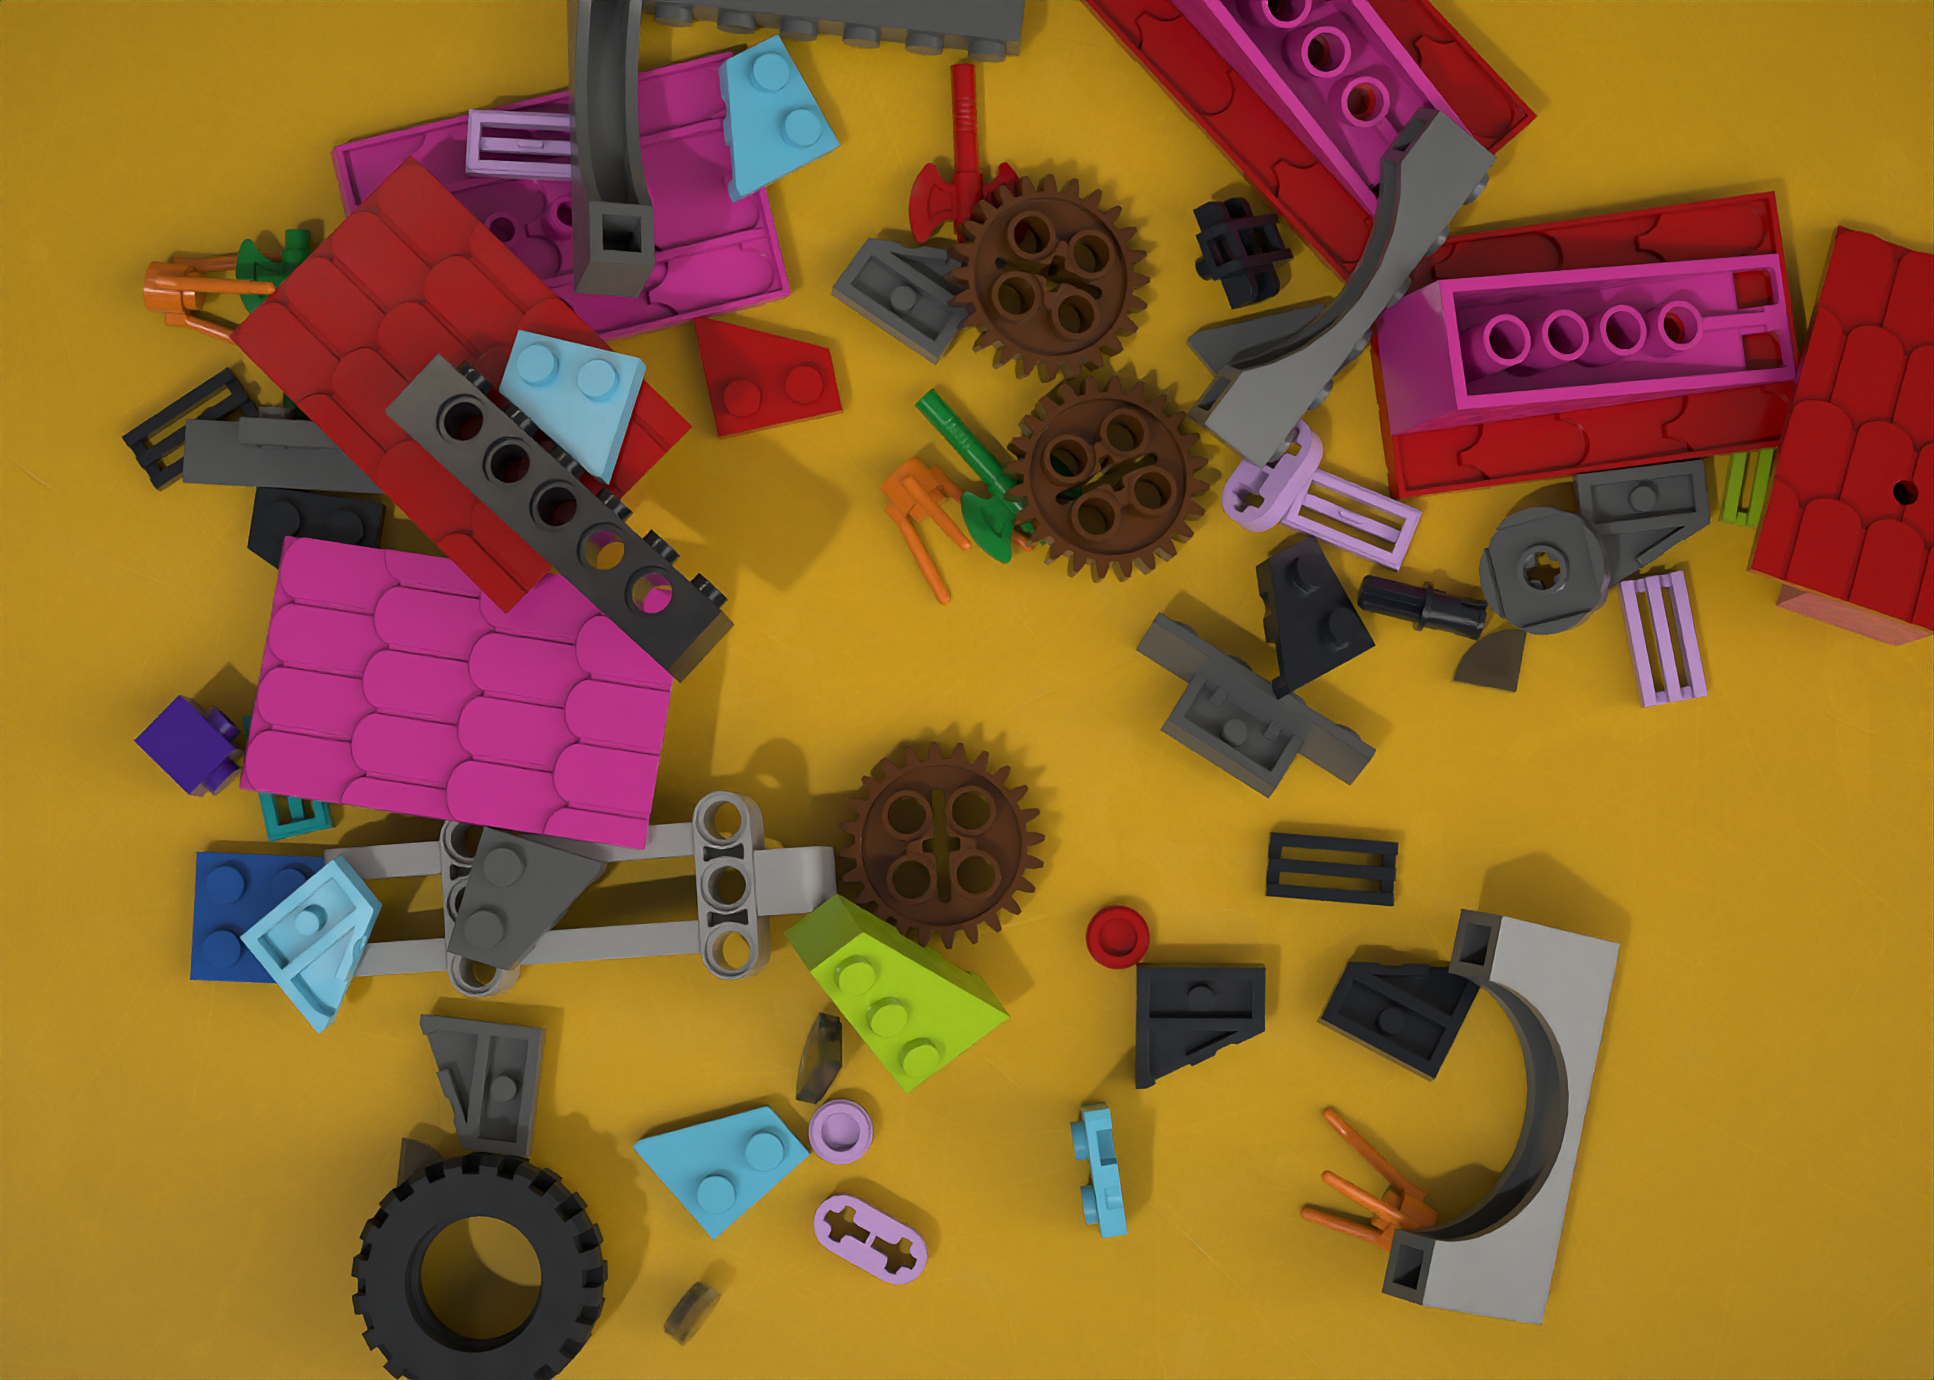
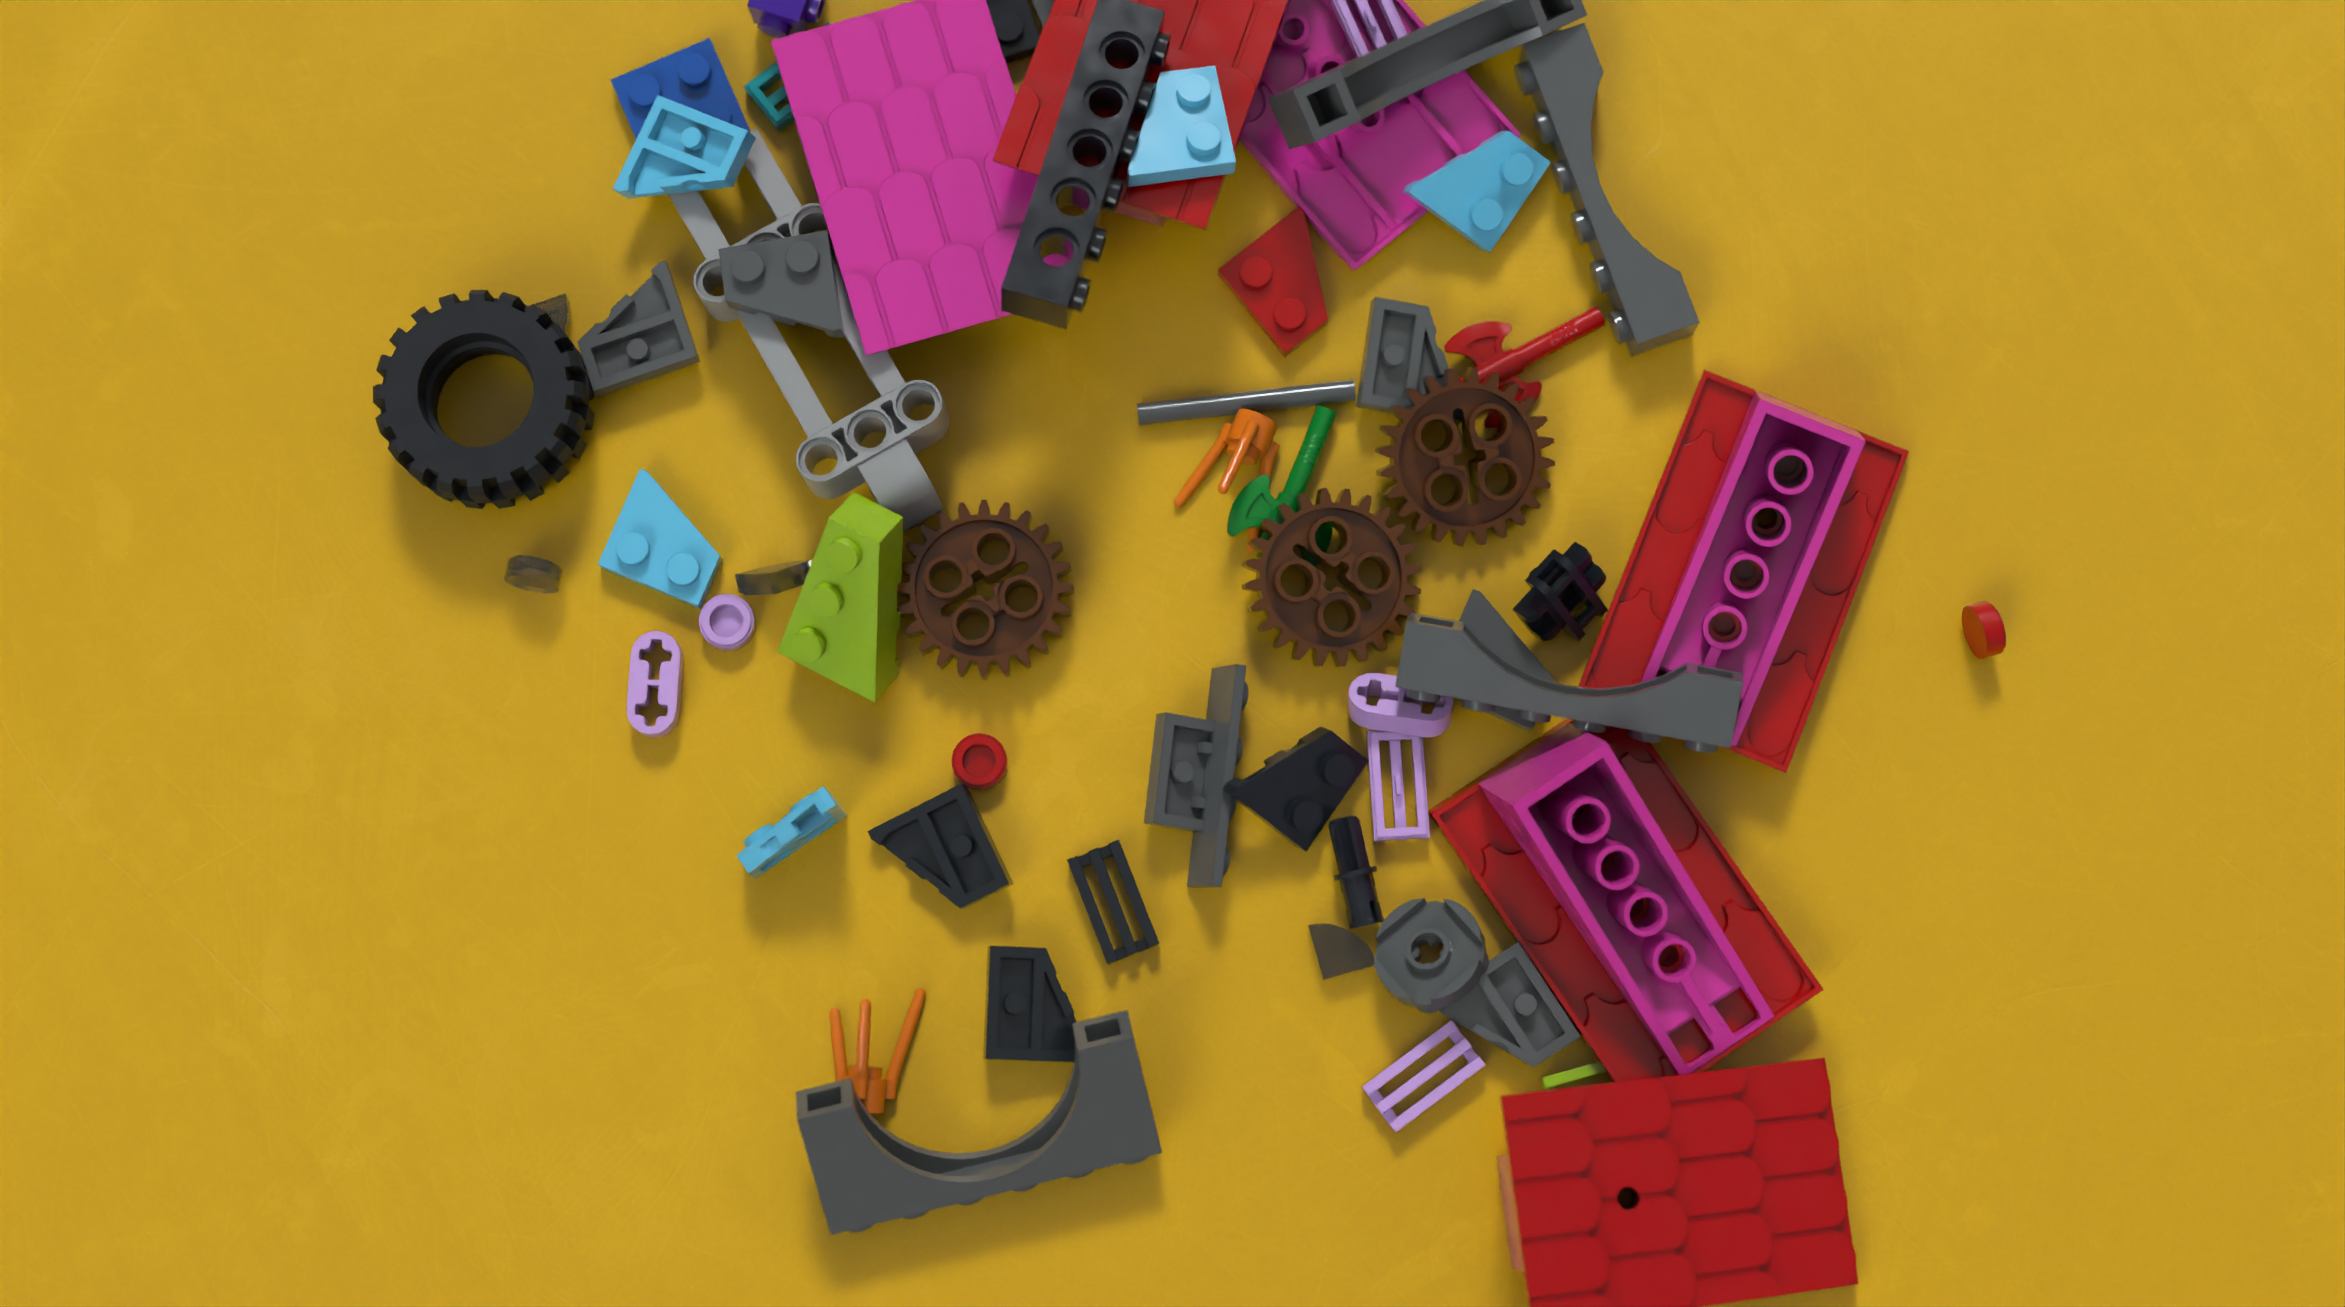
camera: 65 degrees right, 5 degrees down
(872, 476) = (1253, 400): none -> dark grey bar

